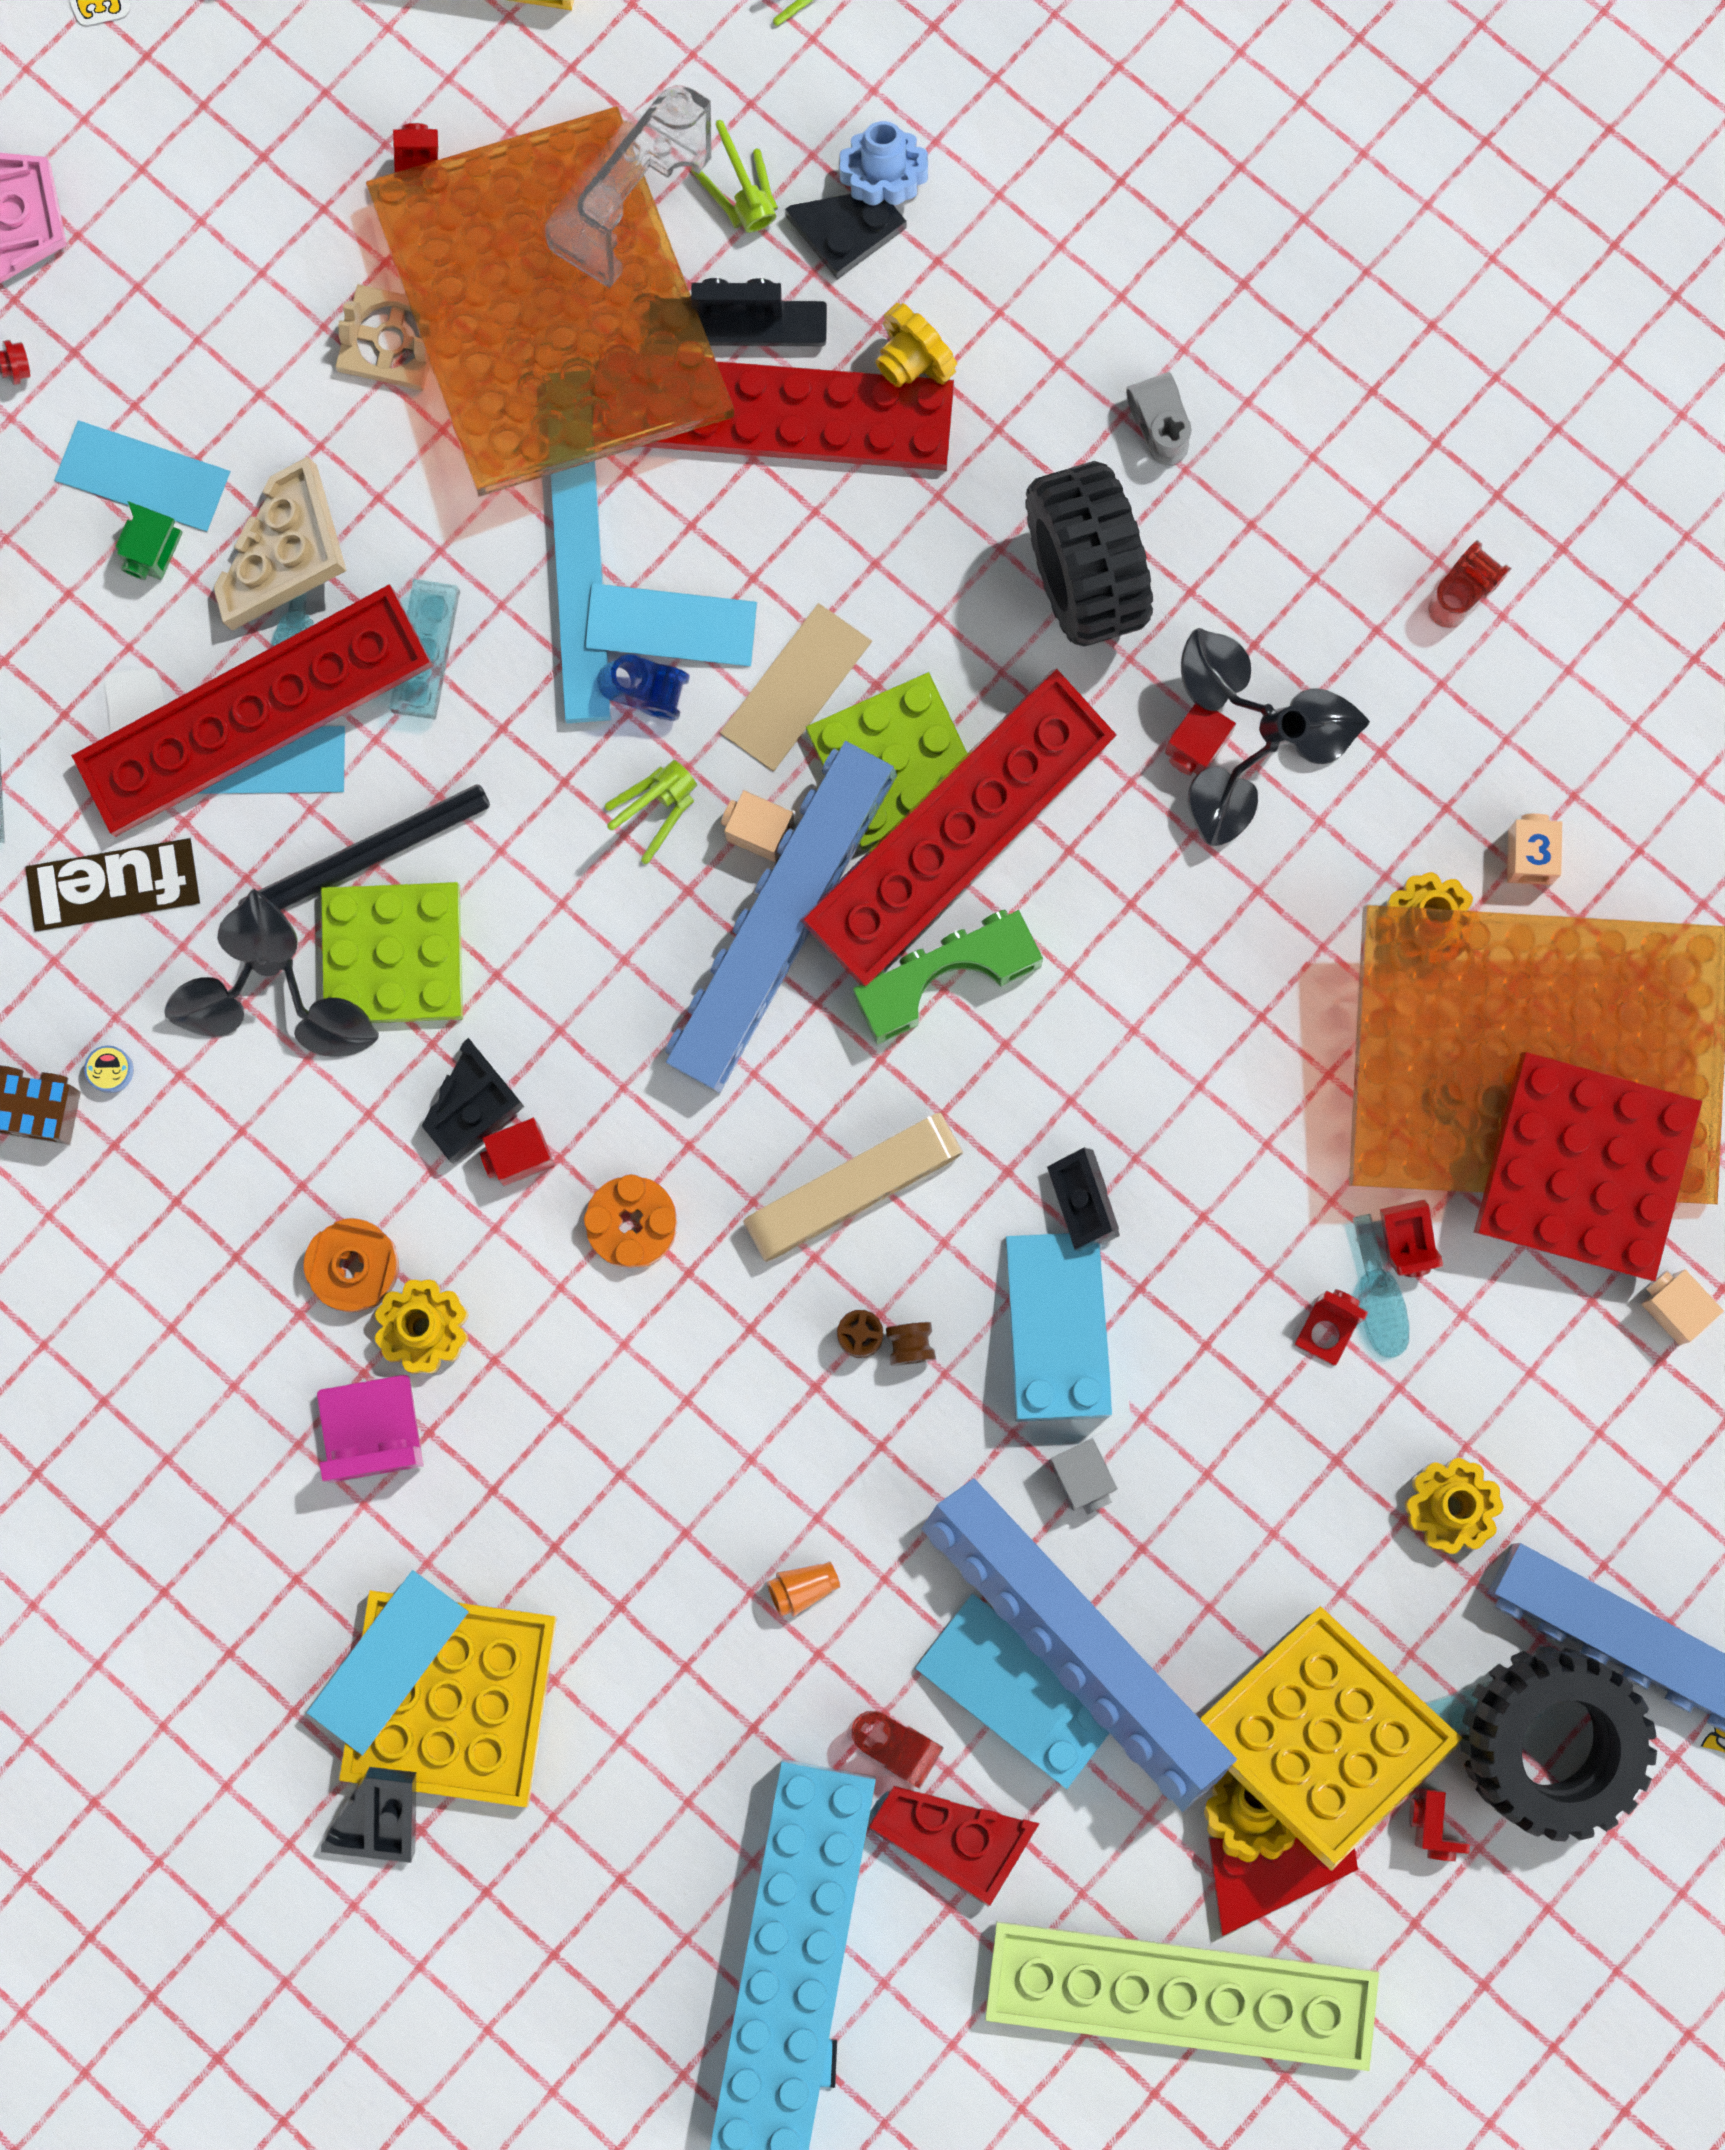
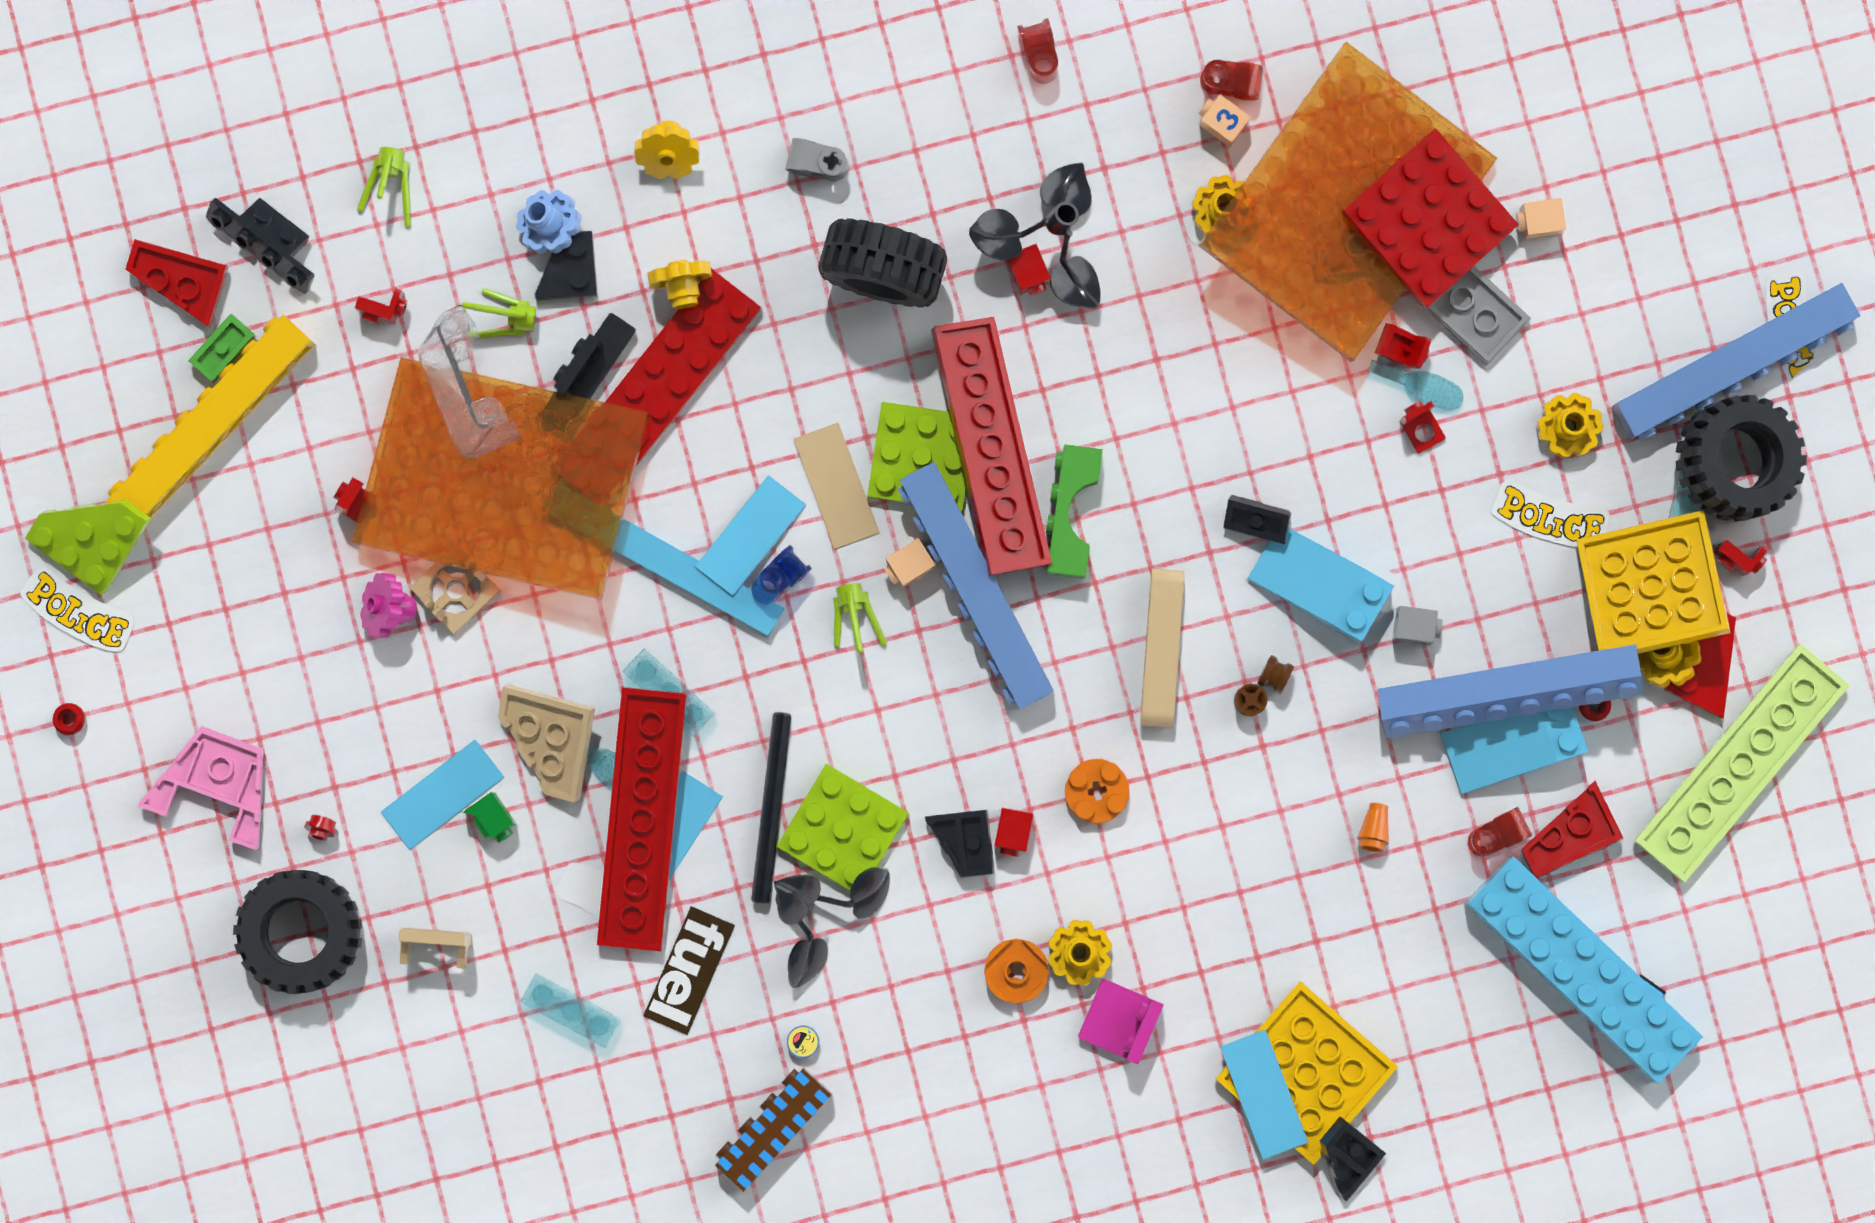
camera: 60 degrees left, 5 degrees up
(316, 269) = (385, 606): none -> dark pink plant
(663, 63) = (375, 311): none -> red bracket
(1054, 239) = (667, 151): none -> yellow plant
(1124, 1777) = (1602, 713): none -> red plate
(1324, 1552) = (1546, 516): none -> sticker
(1512, 1306) = (1479, 315): none -> light grey tile
(1592, 835) = (1237, 79): none -> clear red piece

